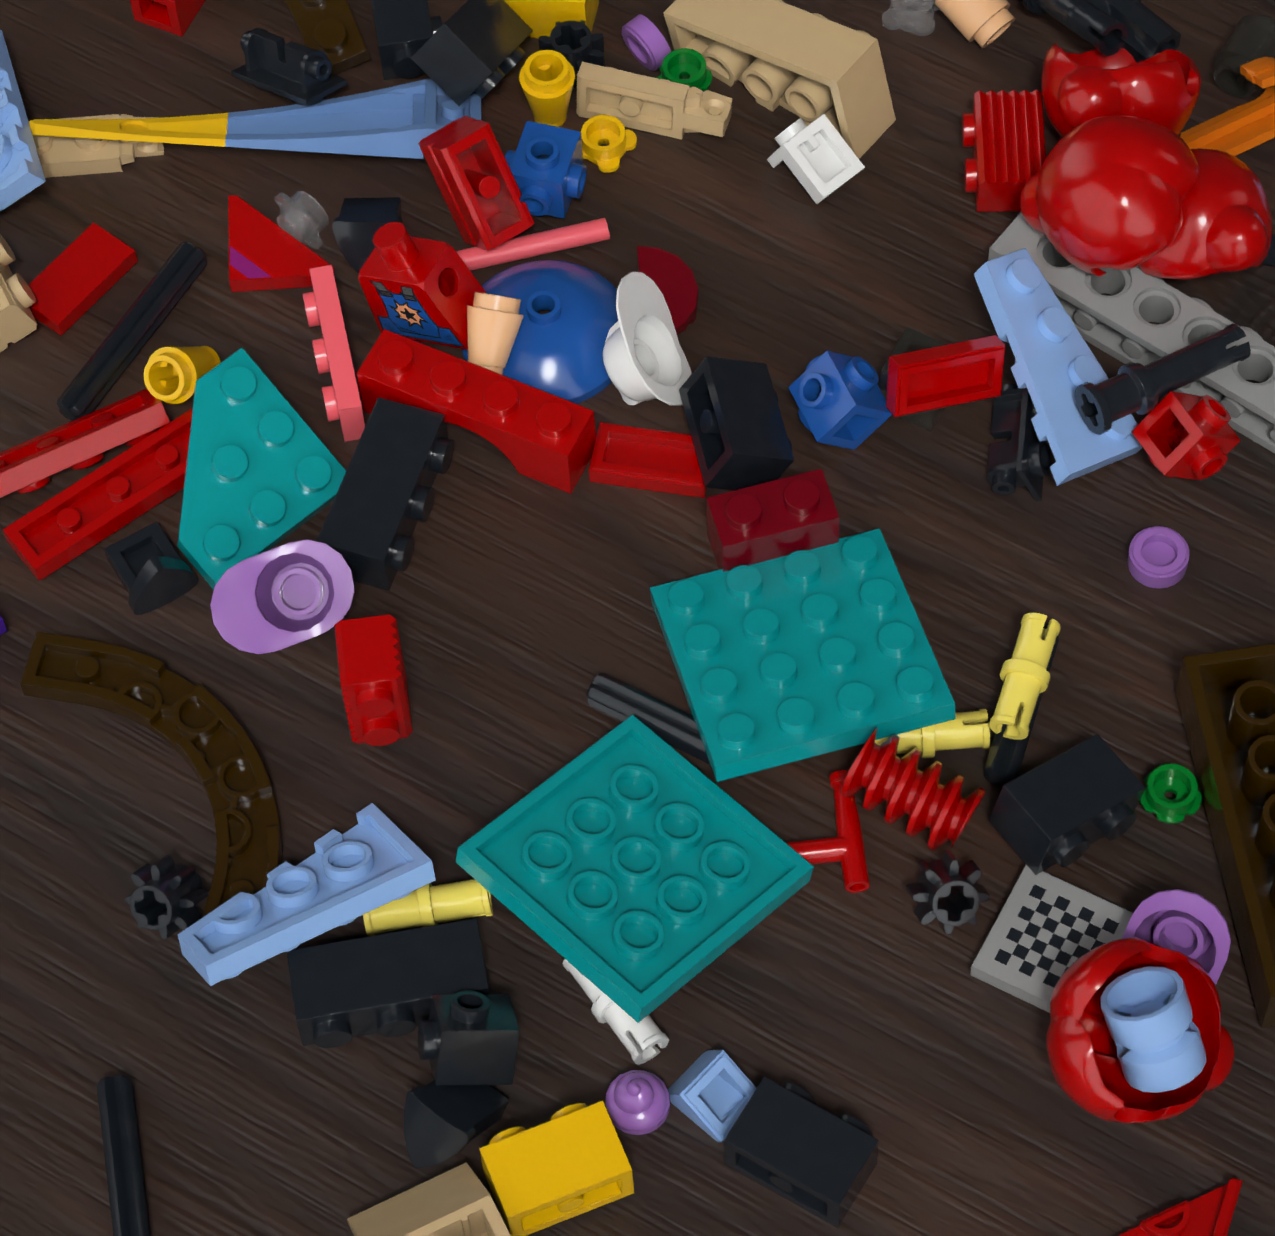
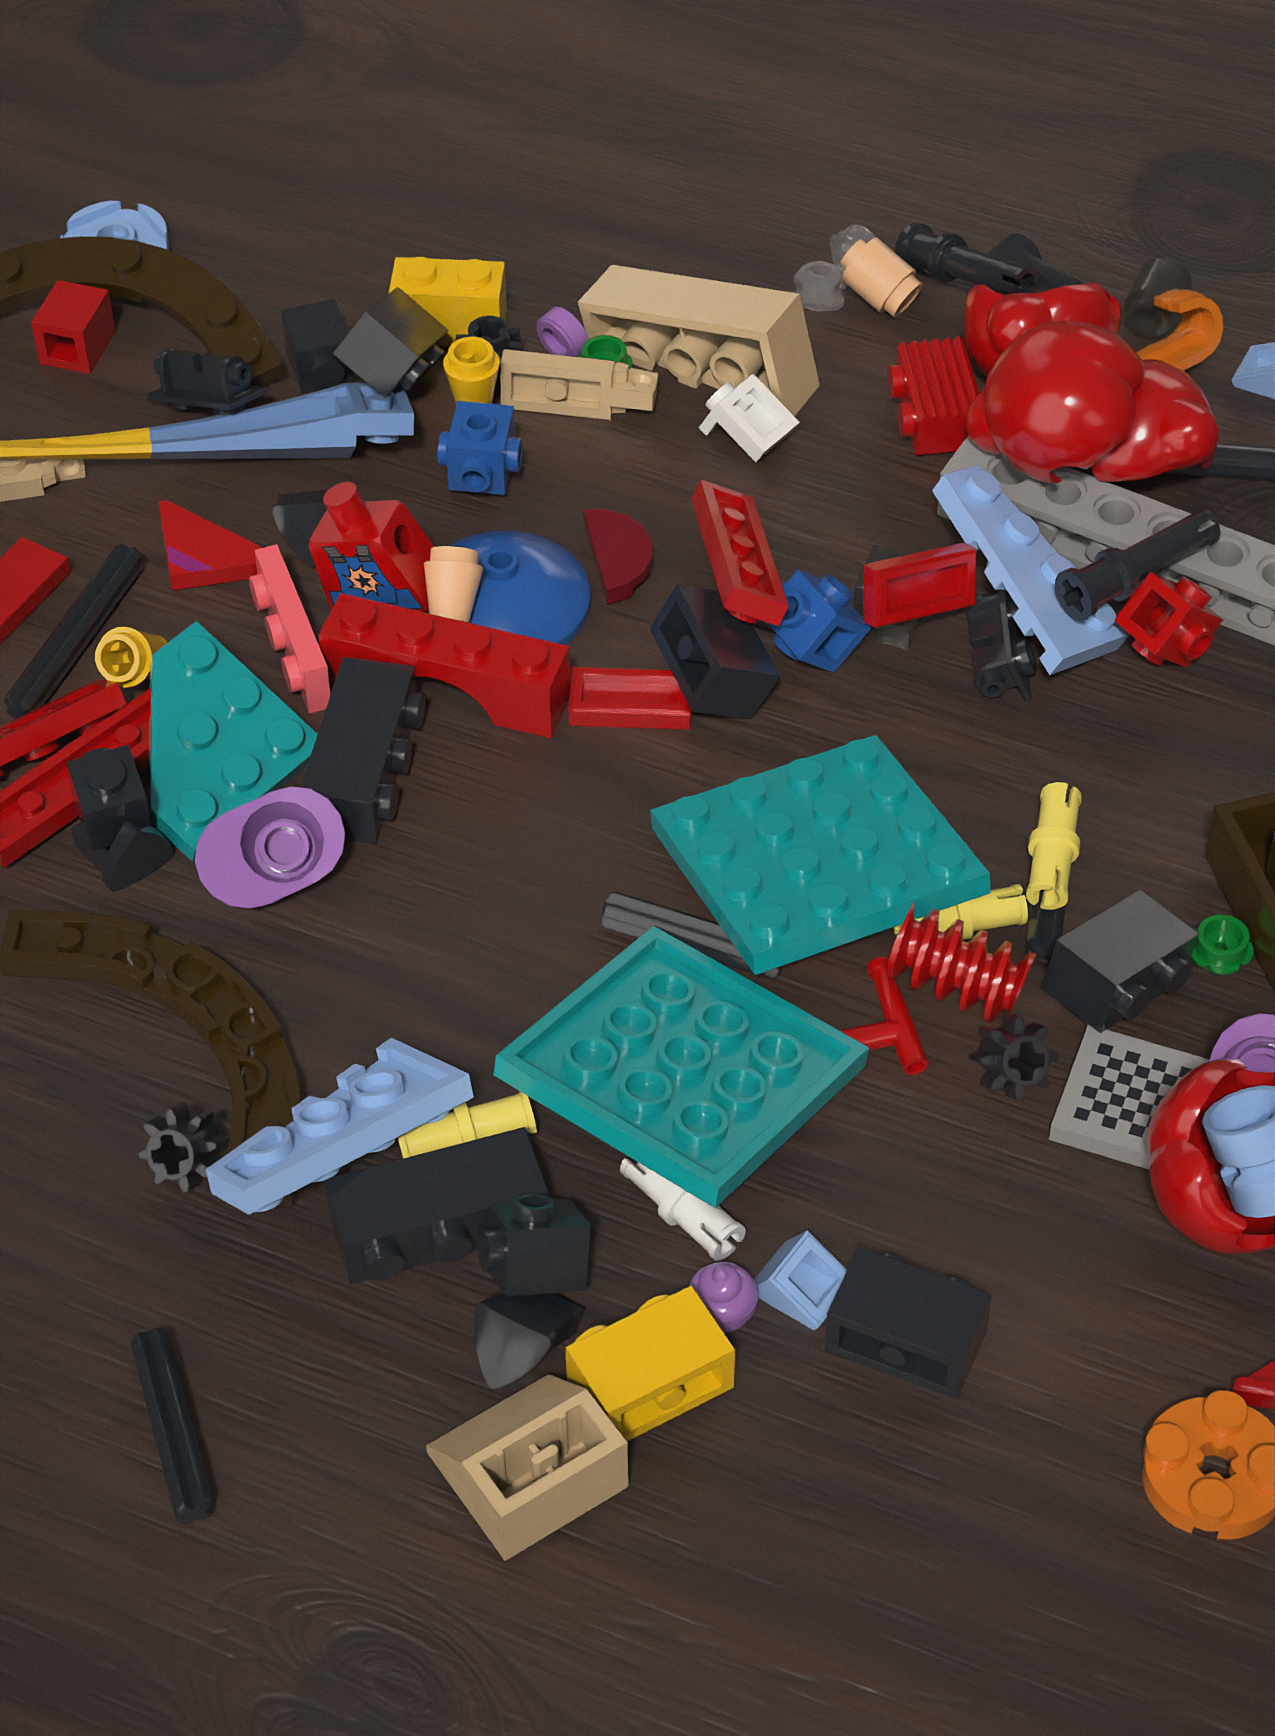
camera: 10 degrees left, 10 degrees down
(136, 526) = (107, 793): none -> black brick
(302, 217) = (238, 511): clear plate -> none
(373, 679) = (378, 912): red brick -> none
(476, 182) = (415, 457): red brick -> none
(537, 244) = (488, 516): coral bar -> none
(610, 131) = (537, 423): yellow plate -> none
(643, 346) = (605, 591): white piece -> none
(771, 520) = (765, 732): dark red brick -> none
(776, 319) = (739, 554): none -> red plate
(1158, 557) = (1160, 736): medium lavender tile -> none

